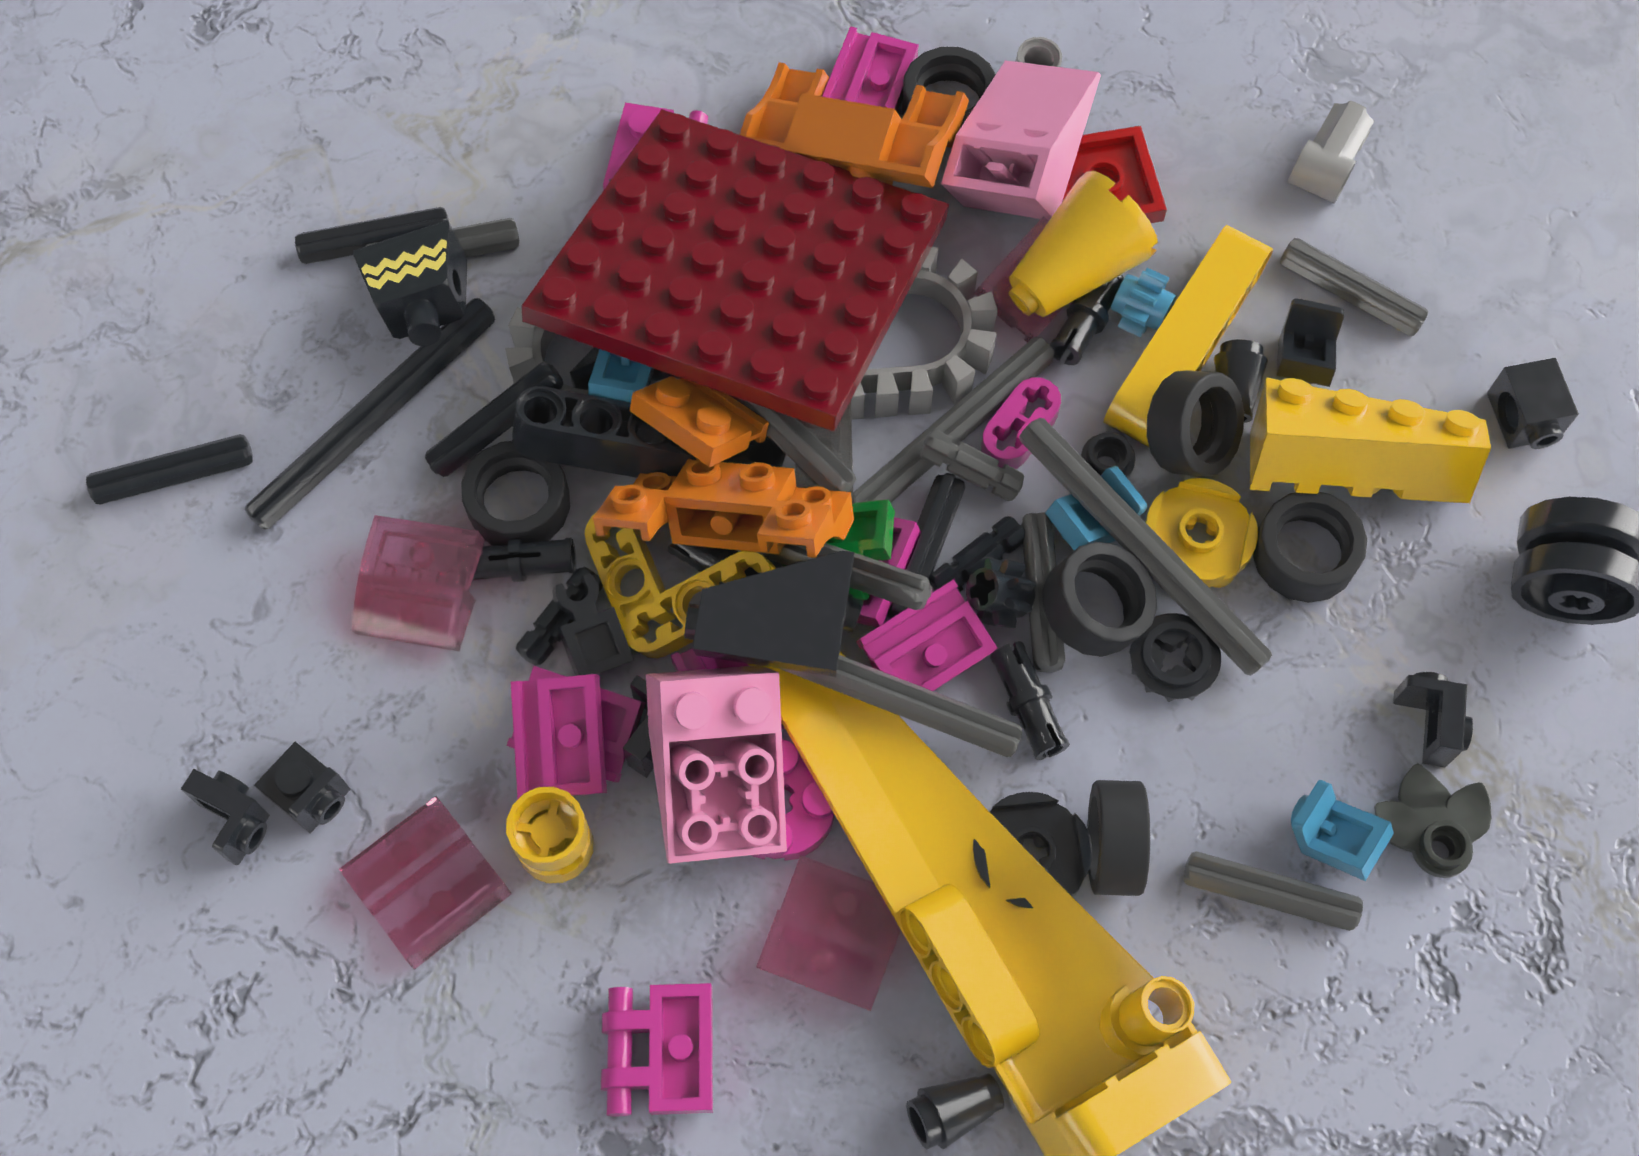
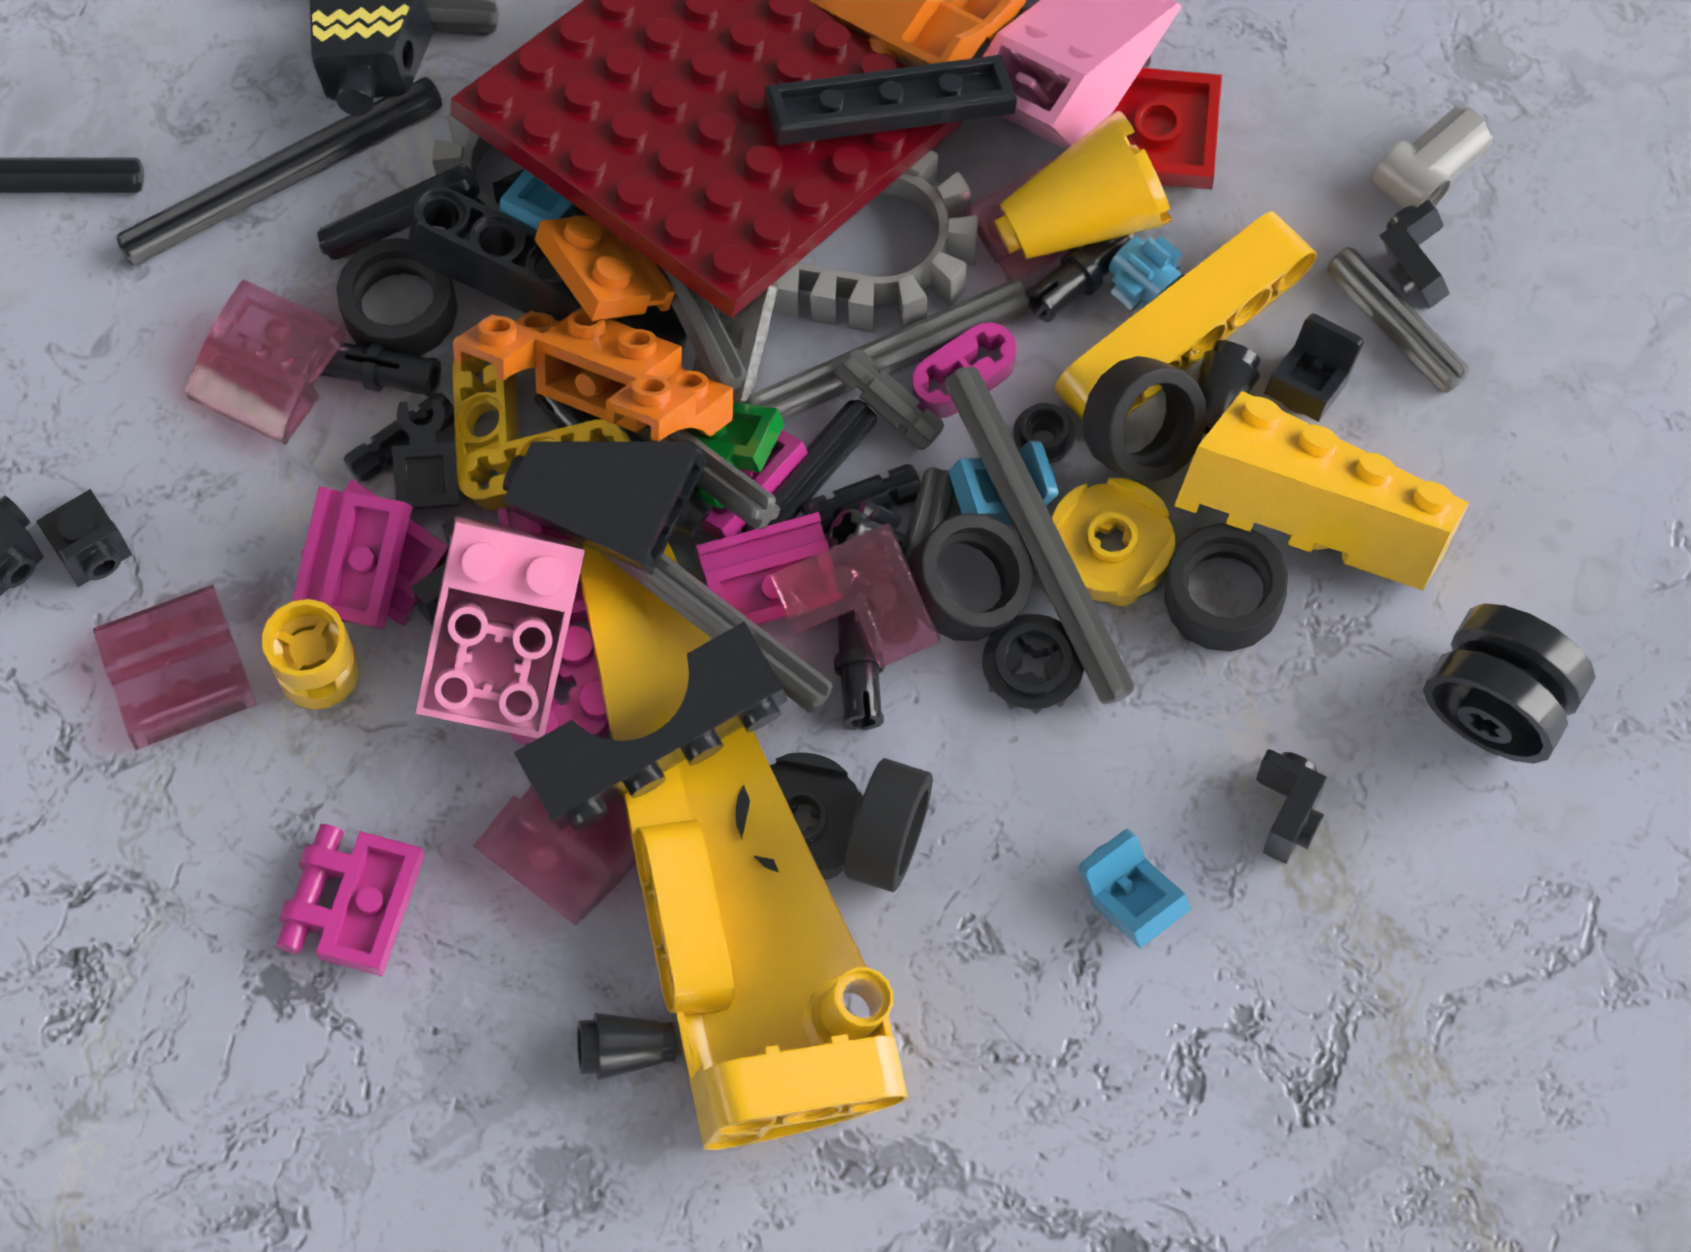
camera: 20 degrees right, 0 degrees up
(892, 212) = (889, 100): none -> black tile
(940, 758) = (725, 691): none -> black arch
(1023, 625) = (866, 577): none -> clear pink plate
(1273, 891) = (1042, 932): dark grey axle -> none
(1351, 238) = (1412, 267): none -> black bracket
(1431, 814) = (1247, 906): pearl dark grey plate -> none
(1532, 404) = (1541, 502): black brick -> none

